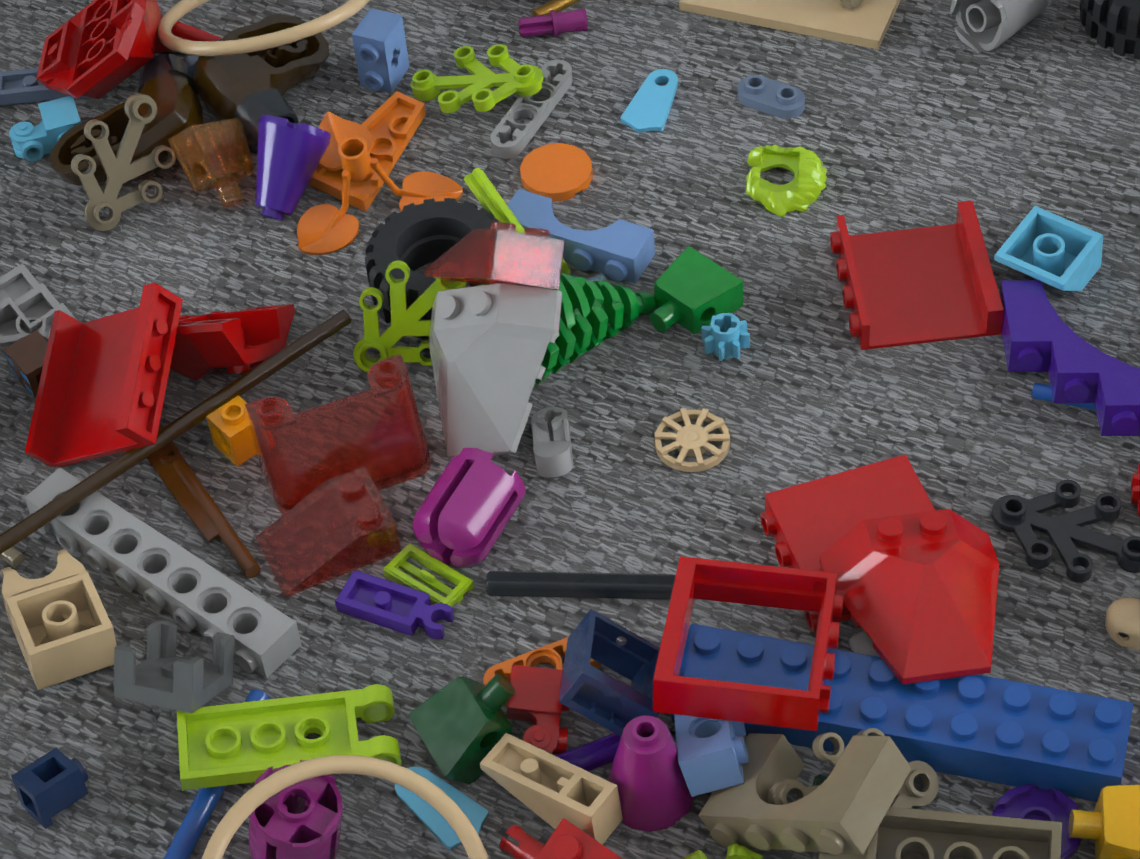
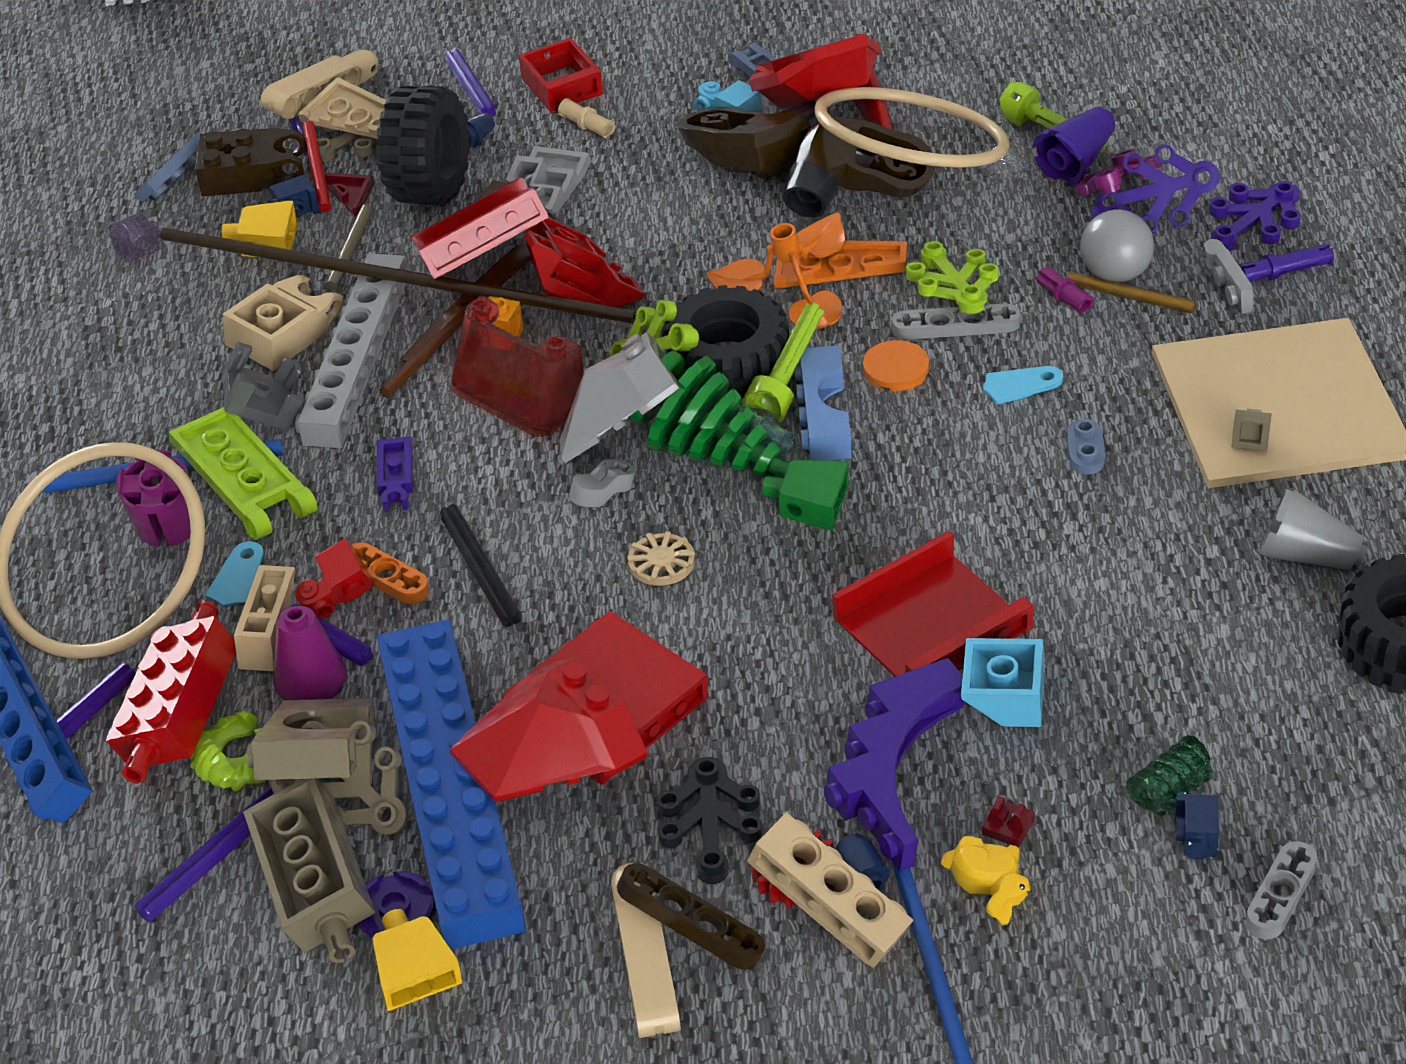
camera: 60 degrees right, 5 degrees down
(50, 785) = (147, 385): dark blue brick -> none
(119, 168) = (695, 142): dark tan plant -> none
(215, 157) = (749, 183): clear orange torso -> none
(286, 163) = (771, 205): dark purple cone -> none
(330, 533) = (444, 413): clear red slope -> none
(380, 50) = (931, 209): medium blue brick -> none
(453, 596) = (433, 499): lime tile -> none
(464, 724) = (298, 541): dark green torso -> none
(467, 509) = (491, 462): magenta cylinder -> none
(502, 257) = (666, 337): slope -> none
(597, 693) = (338, 601): dark blue window -> none
(710, 753) = (338, 673): medium blue brick -> none
(725, 336) = (777, 528): medium azure gear -> none
(751, 586) = (417, 602): red window -> none
(796, 195) = (997, 504): lime piece -> none

